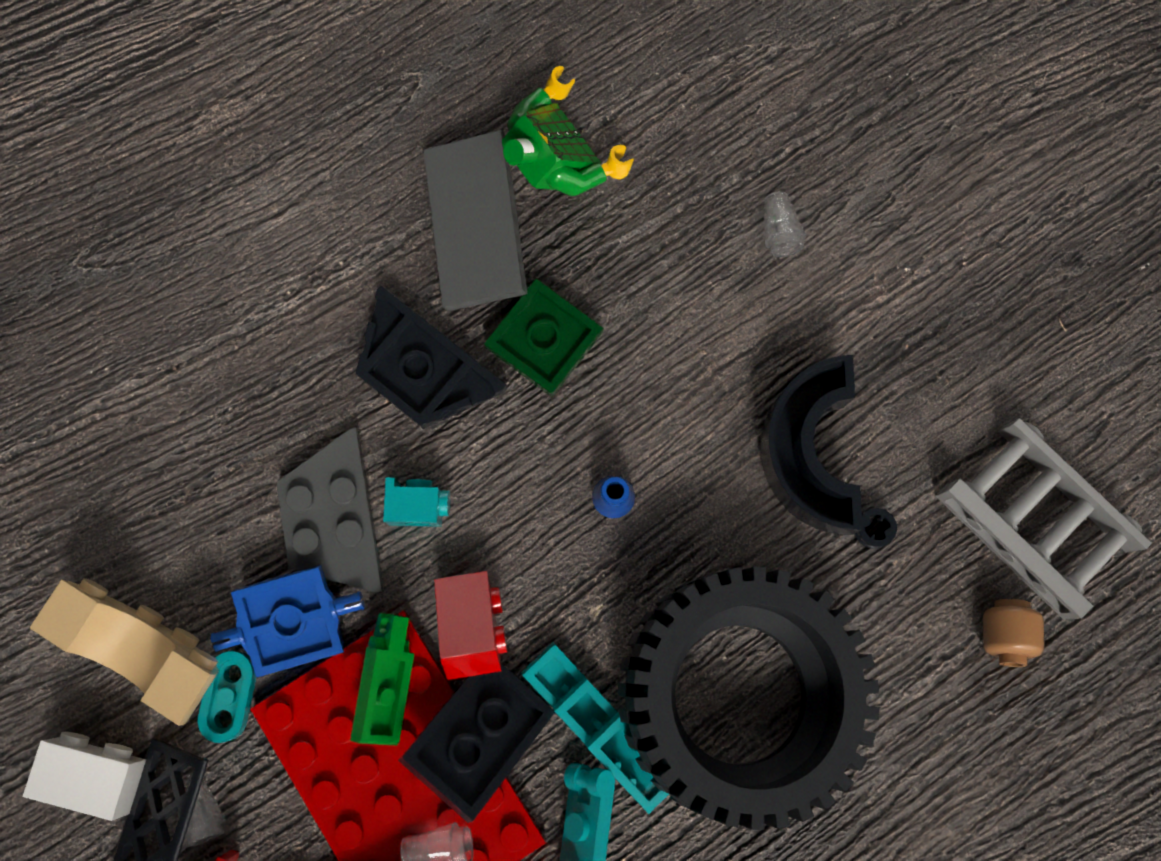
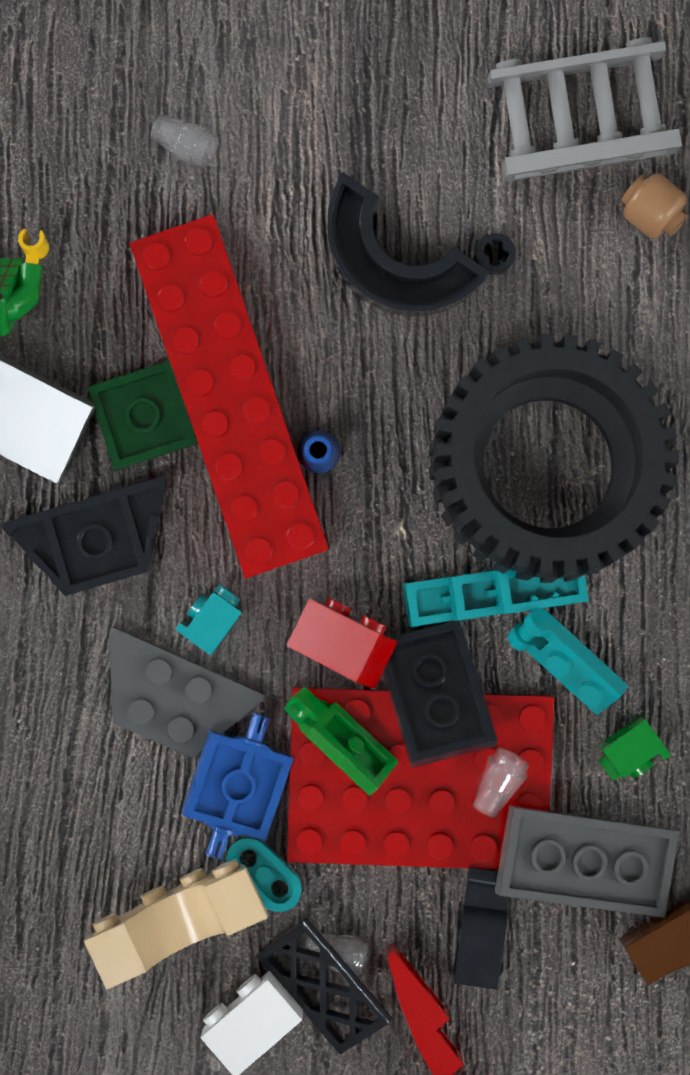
camera: 55 degrees left, 10 degrees up
(605, 395) = (229, 396): none -> red brick

